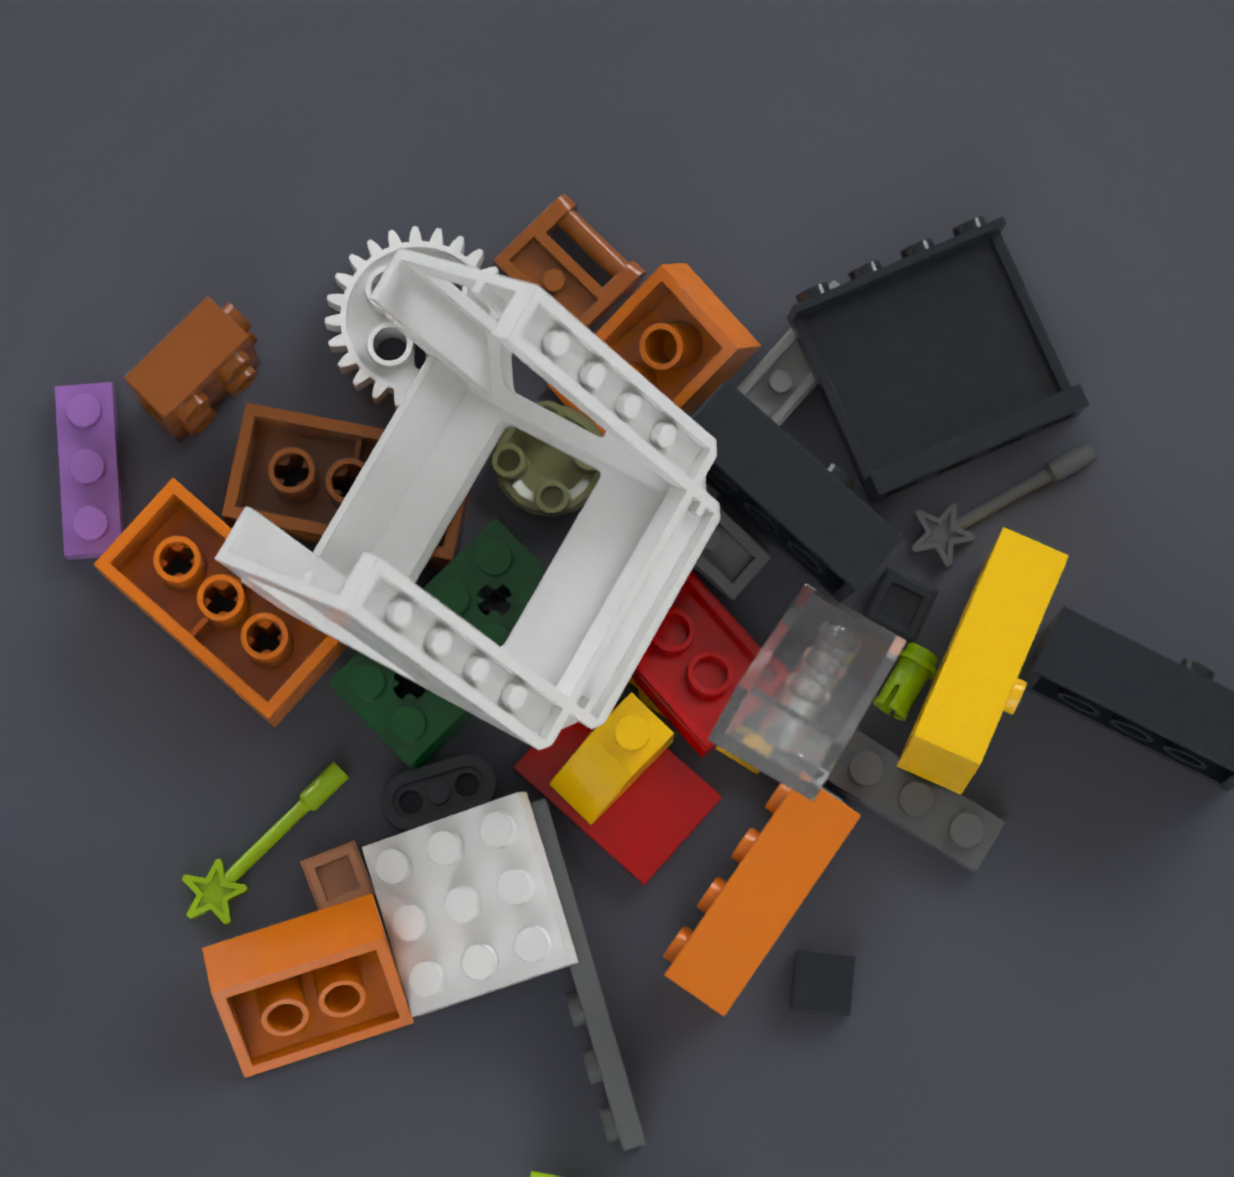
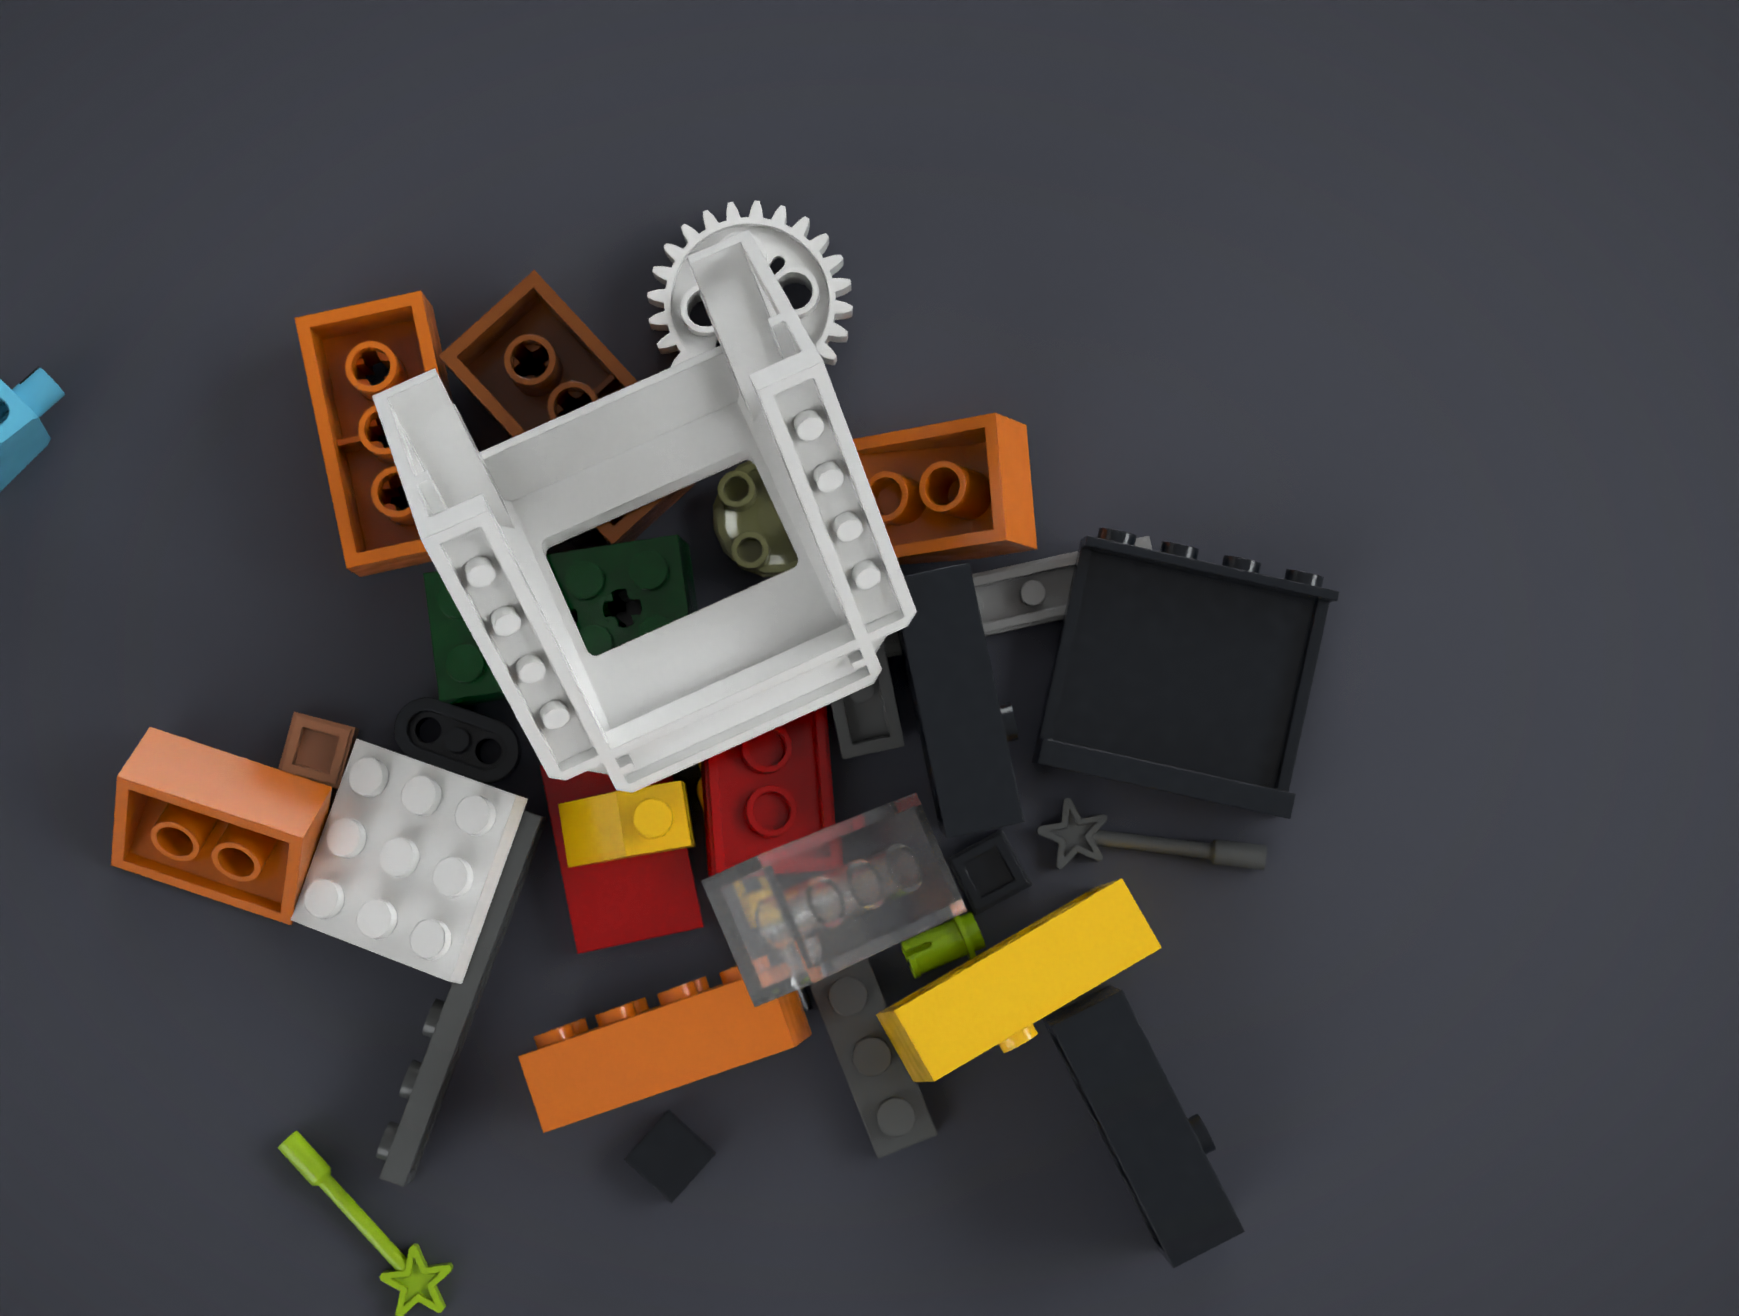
camera: 35 degrees right, 5 degrees up
(88, 468) = (367, 227): medium lavender plate -> none
(196, 369) = (515, 207): dark orange brick -> none
(220, 886) = (211, 681): lime piece -> none
(542, 262) = (898, 355): dark orange plate -> none

